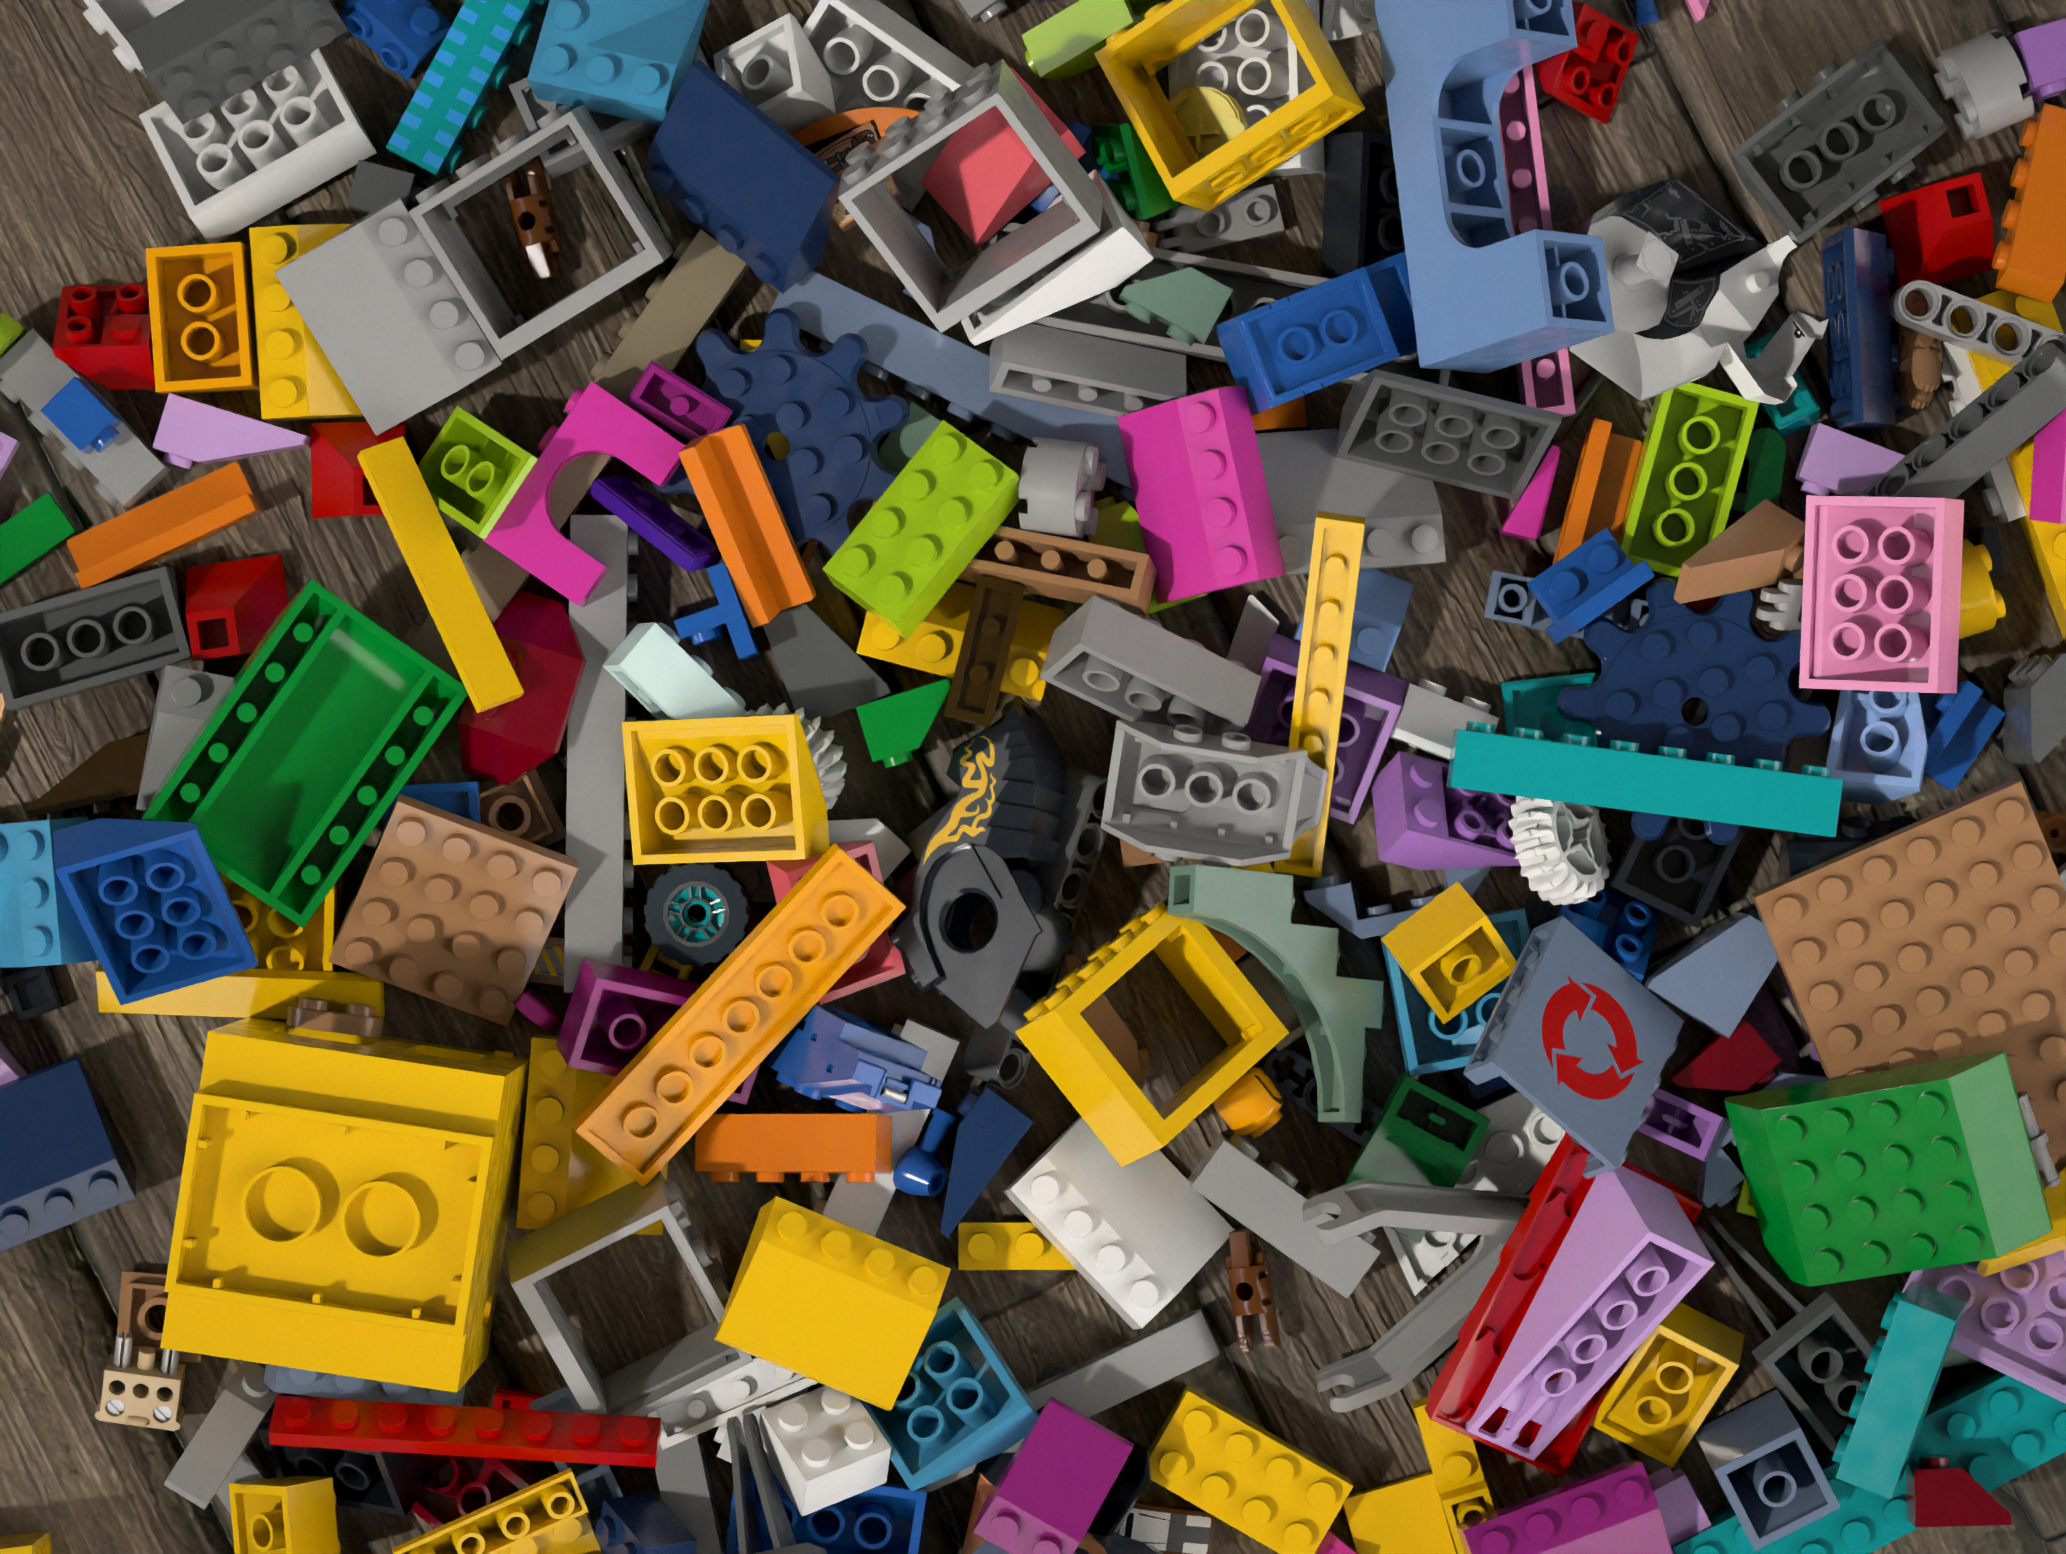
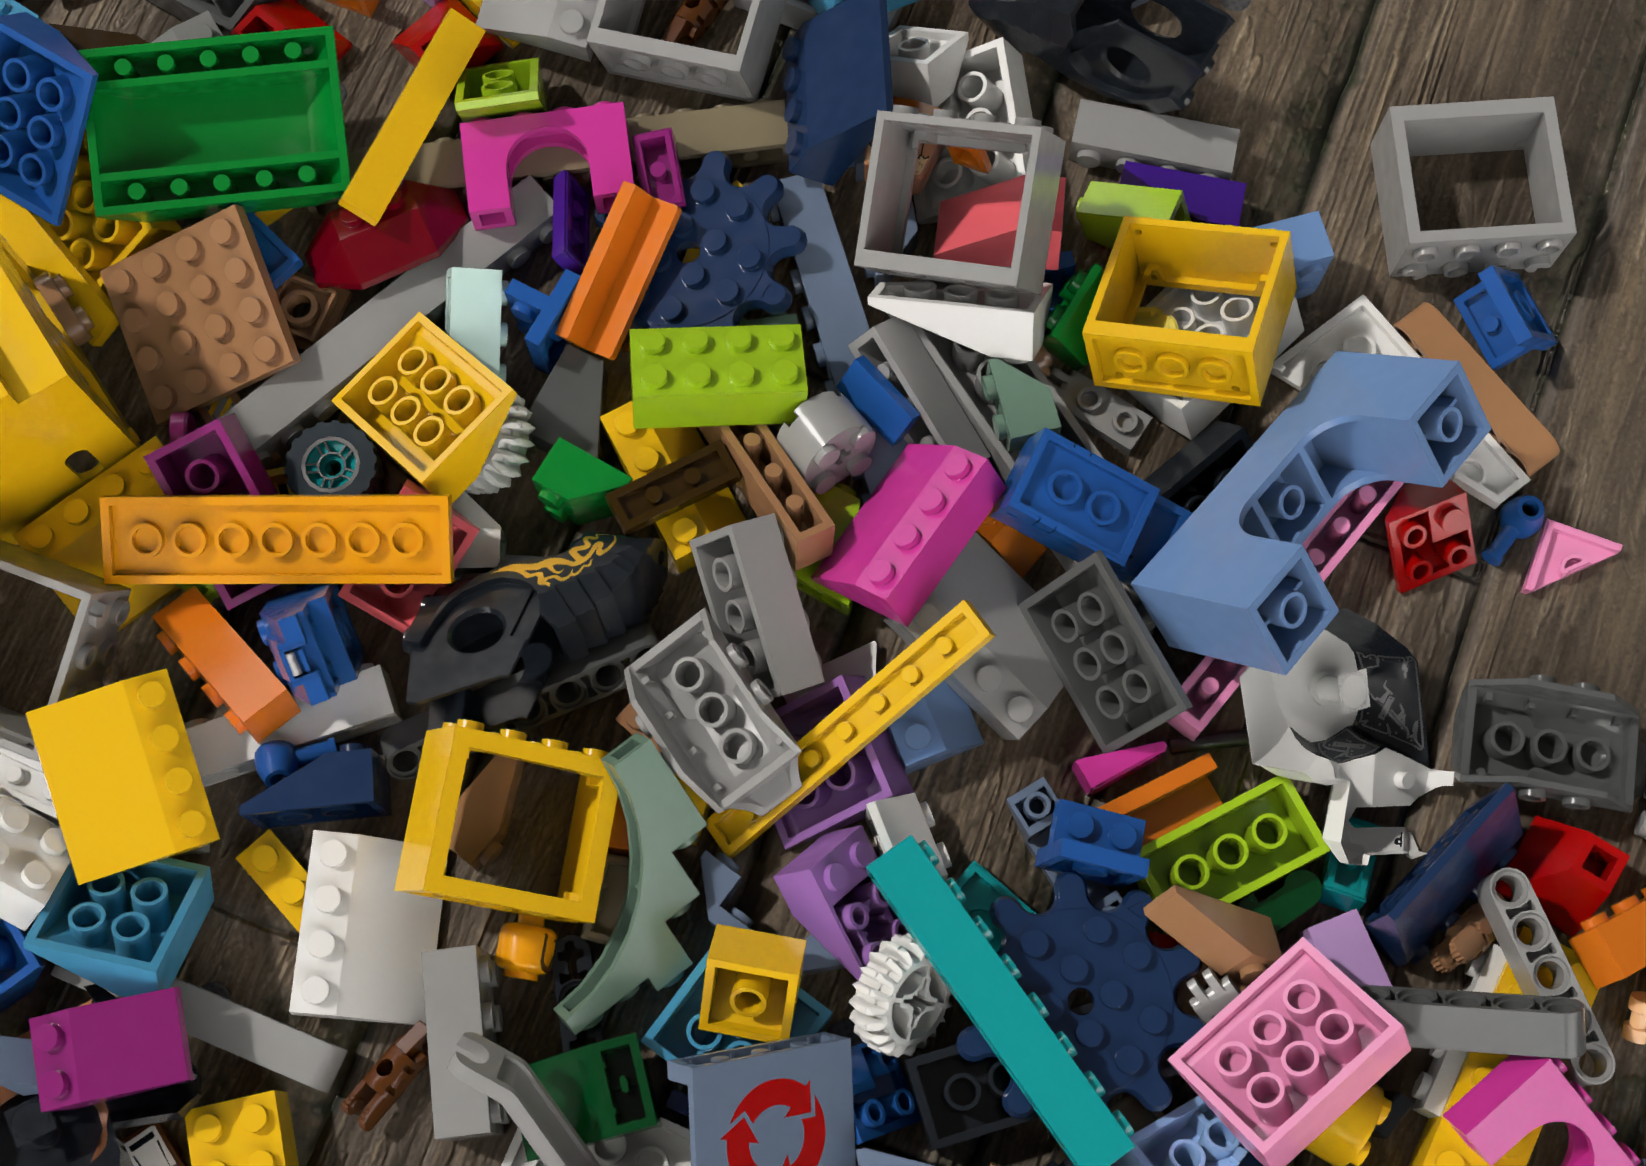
camera: 50 degrees right, 15 degrees down
(1060, 410) = (878, 400): none -> blue tile

